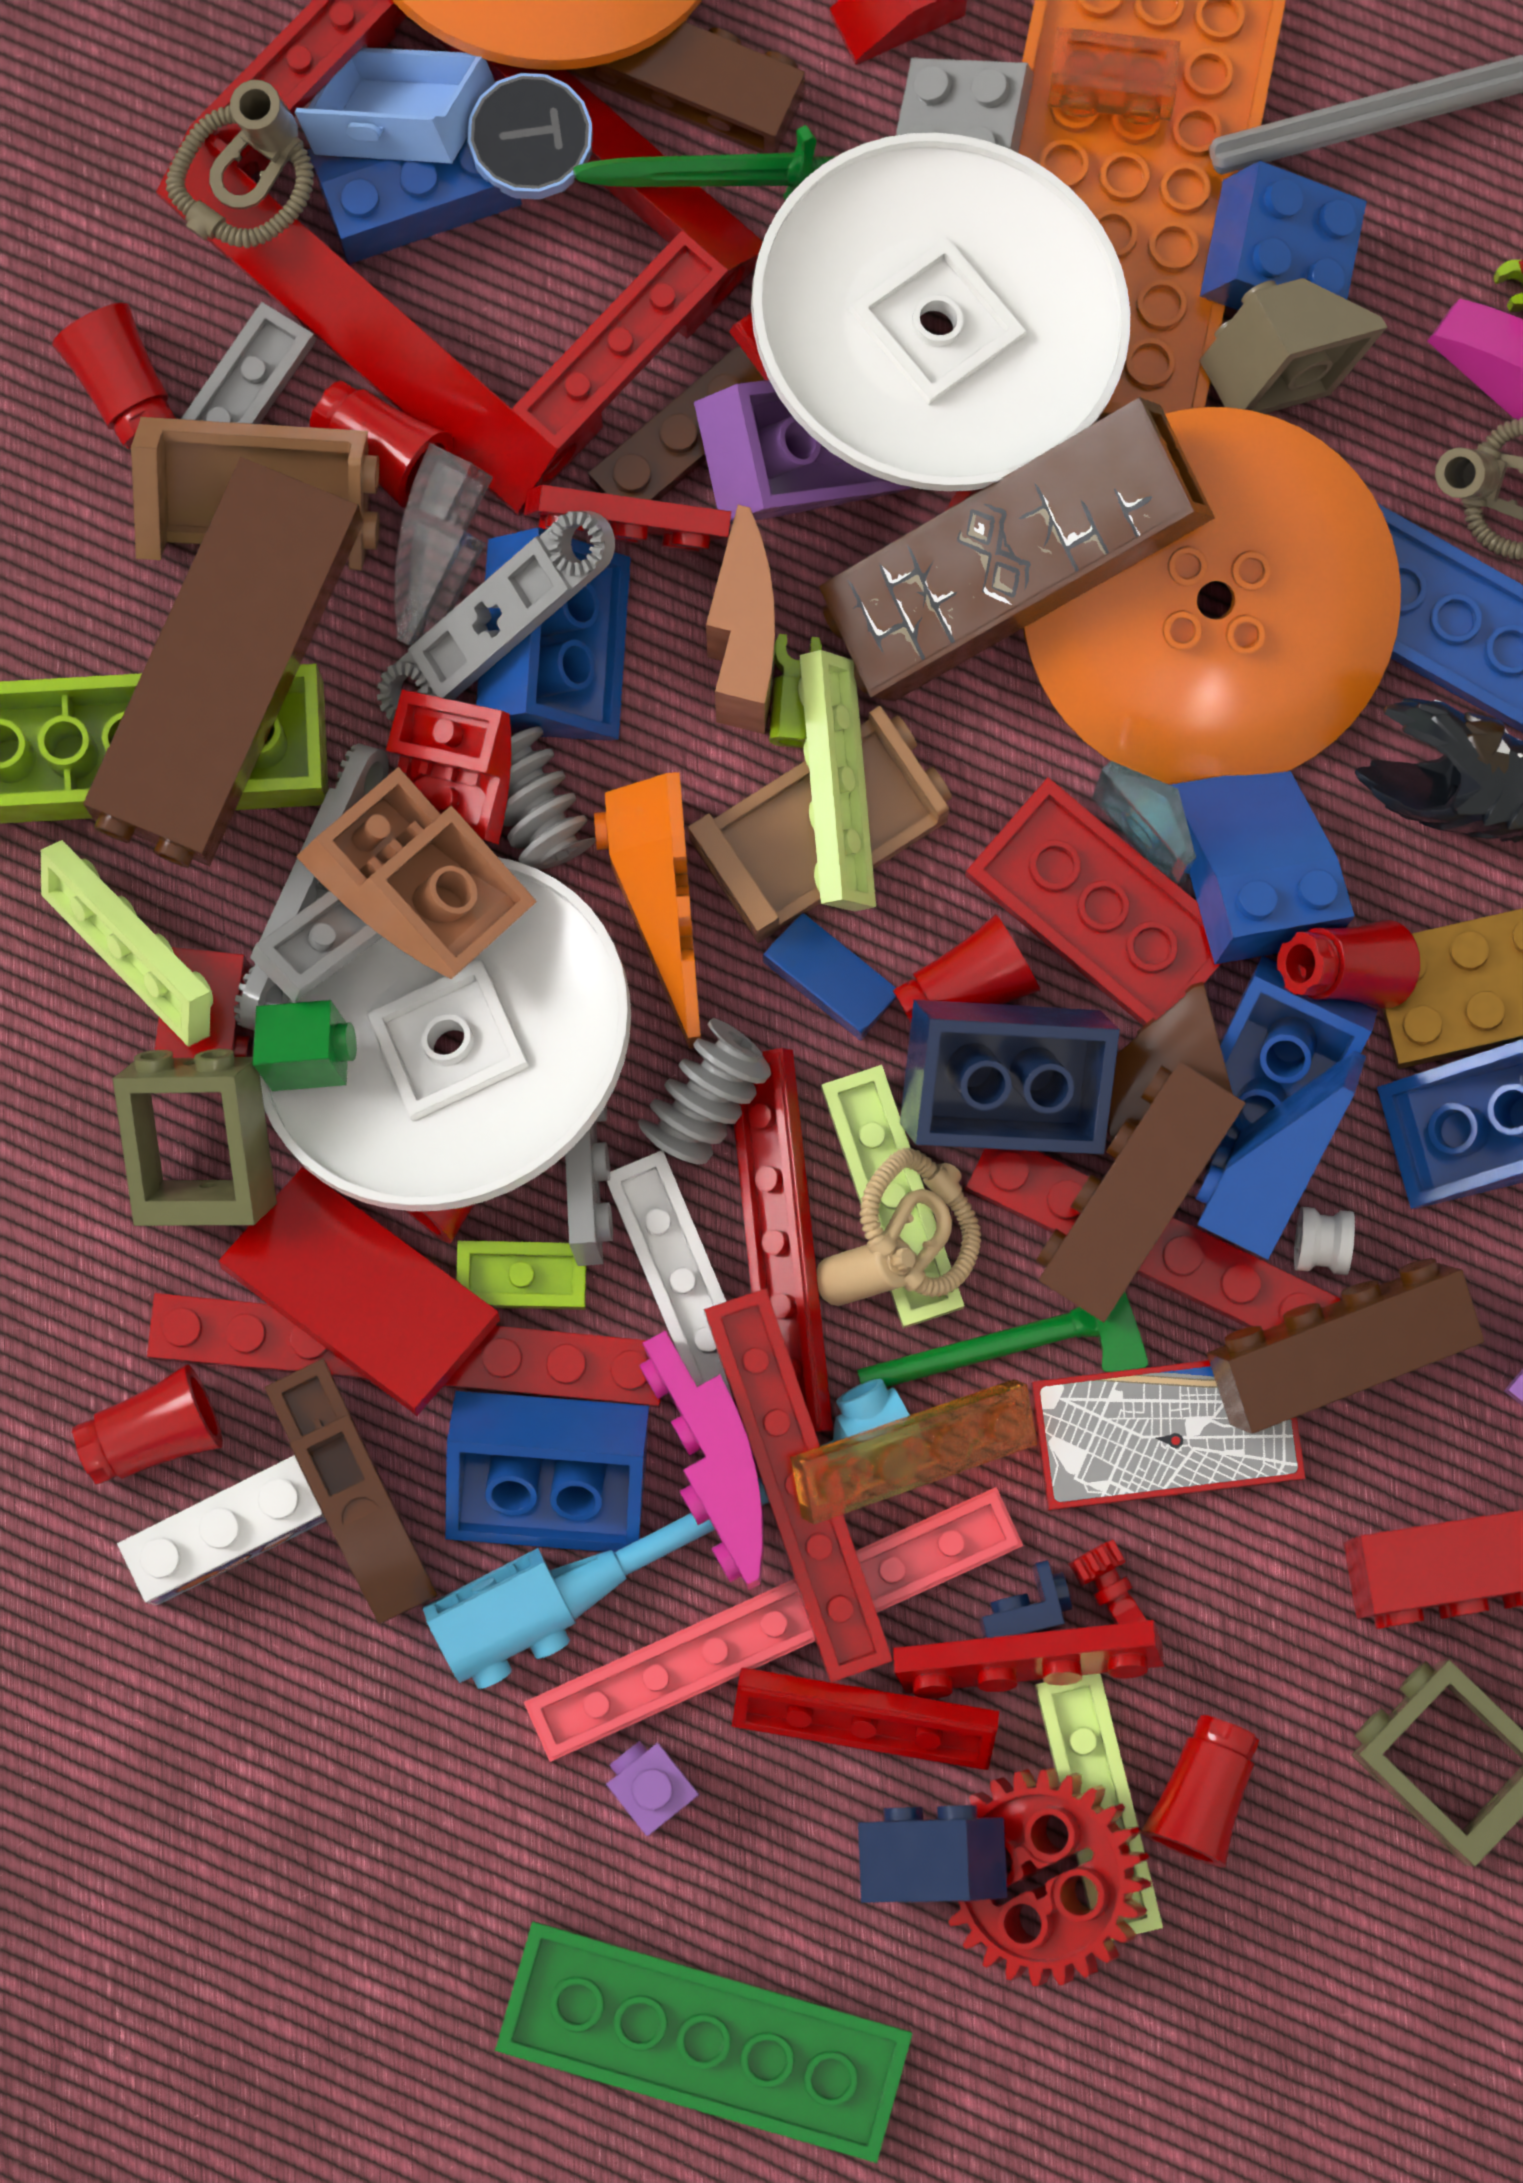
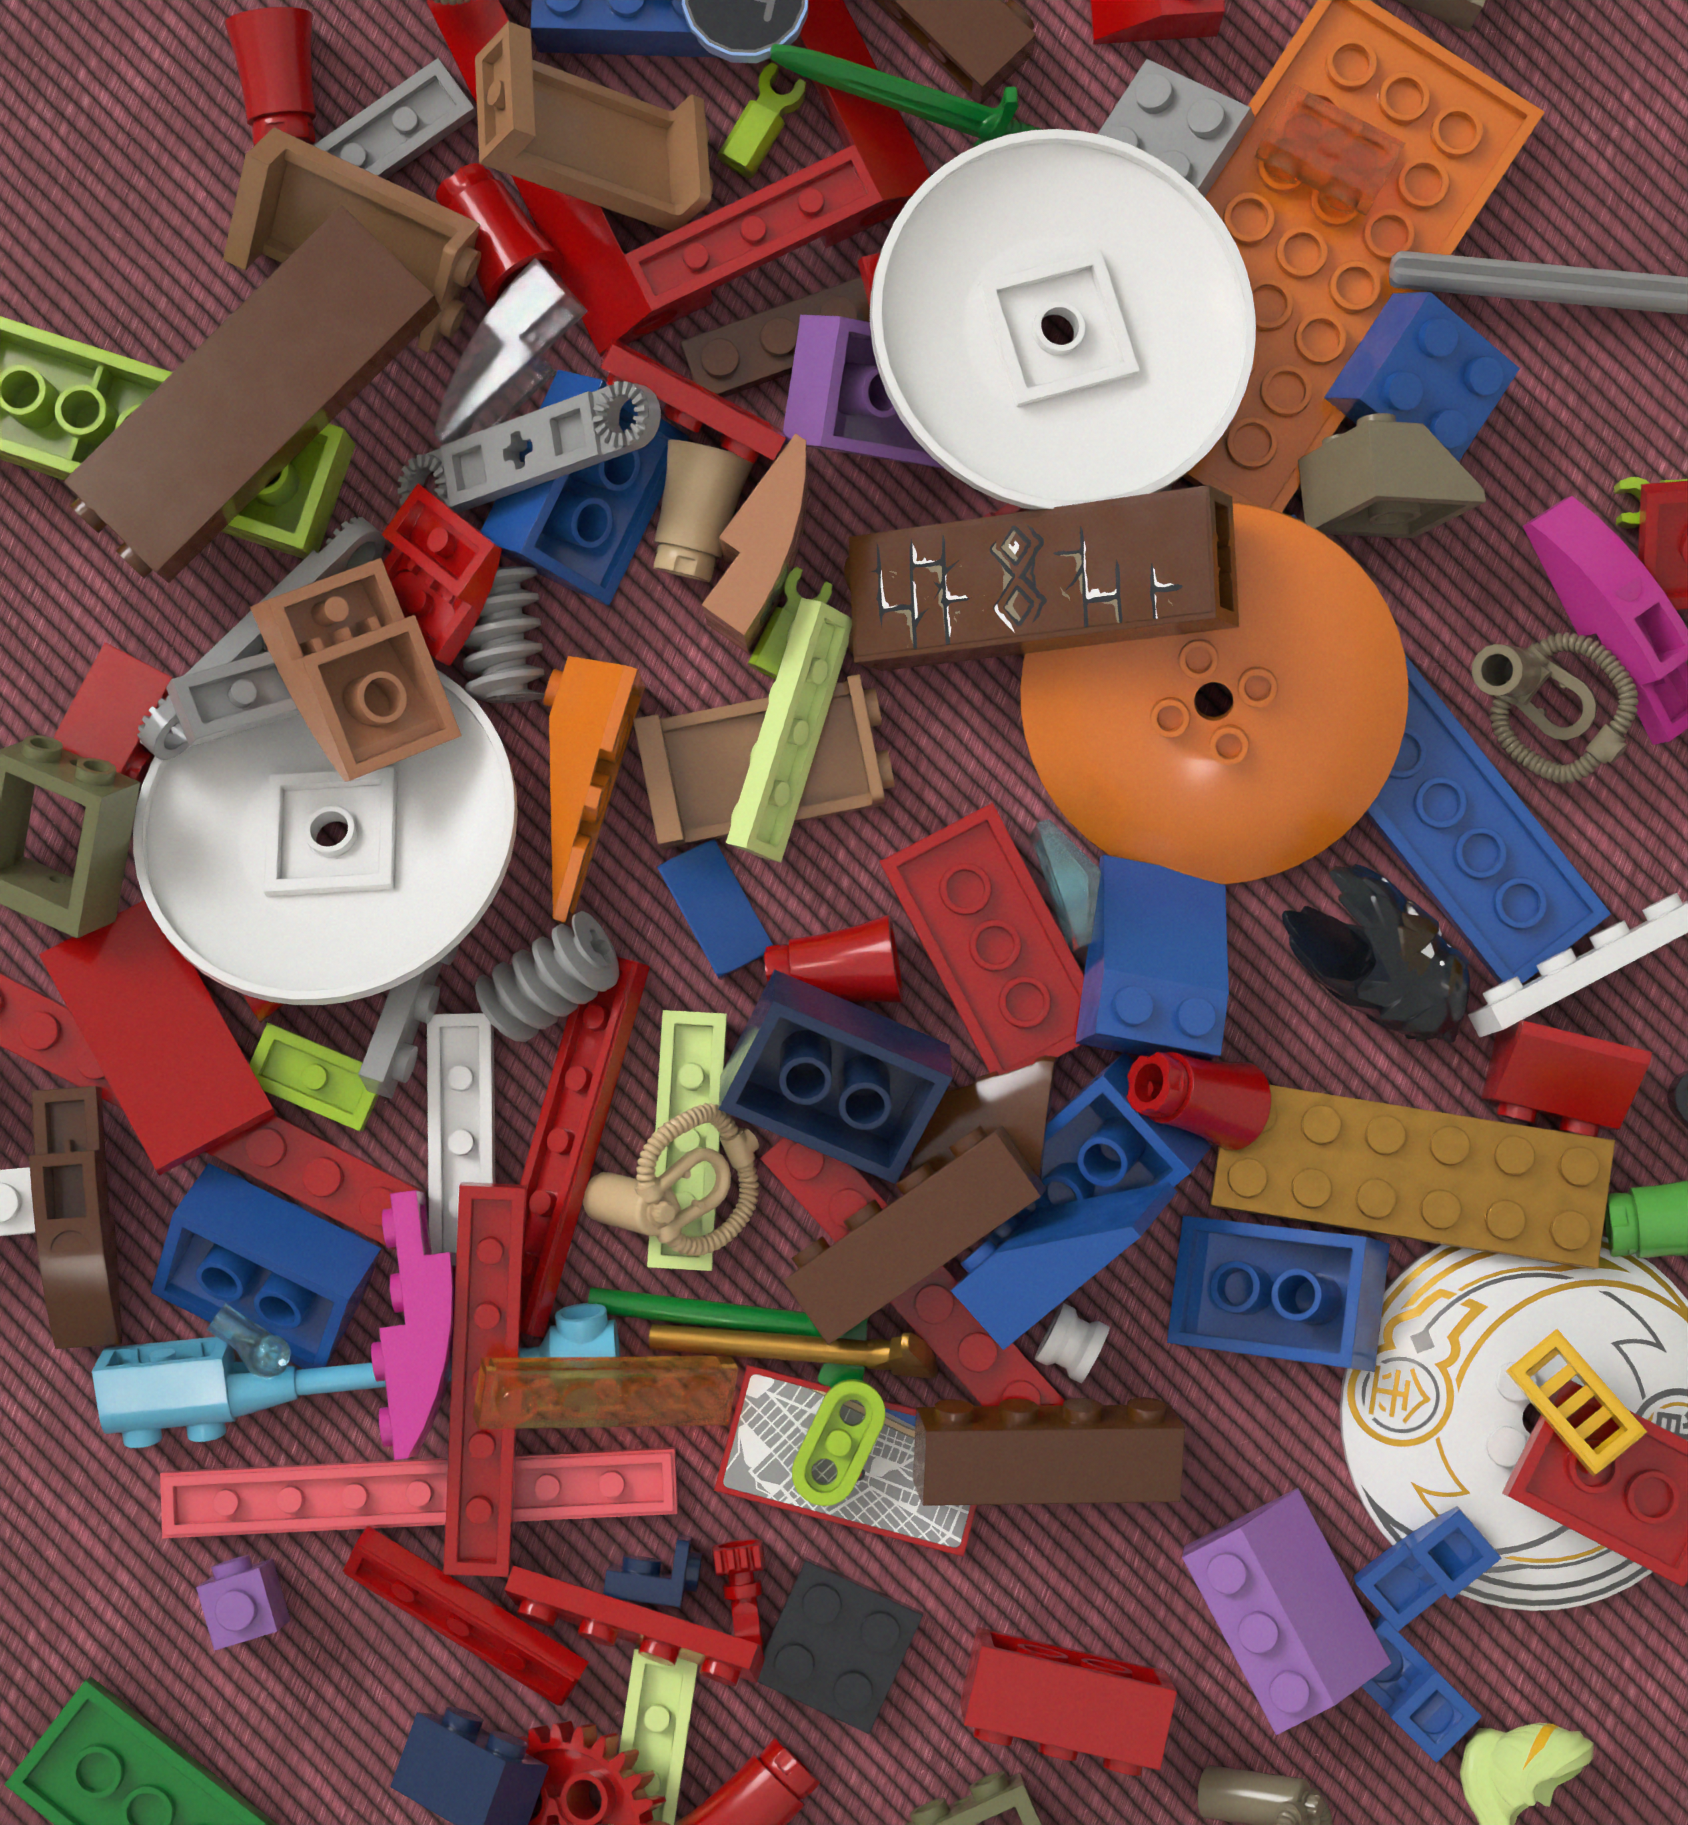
camera: 25 degrees right, 5 degrees up
(126, 943) = (62, 609): yellowish green plate -> none
(303, 1045) = (187, 787): green brick -> none
(439, 315) = (589, 136): none -> medium nougat panel
(577, 1546) = (259, 1349): none -> clear light blue arm
(581, 251) = (759, 124): none -> lime bar
(667, 614) = (697, 507): none -> tan plant
(1148, 1415) = (838, 1441): none -> lime plate
(1174, 1313) = (903, 1355): none -> pearl gold piece
(1223, 1608) = (838, 1645): none -> black plate

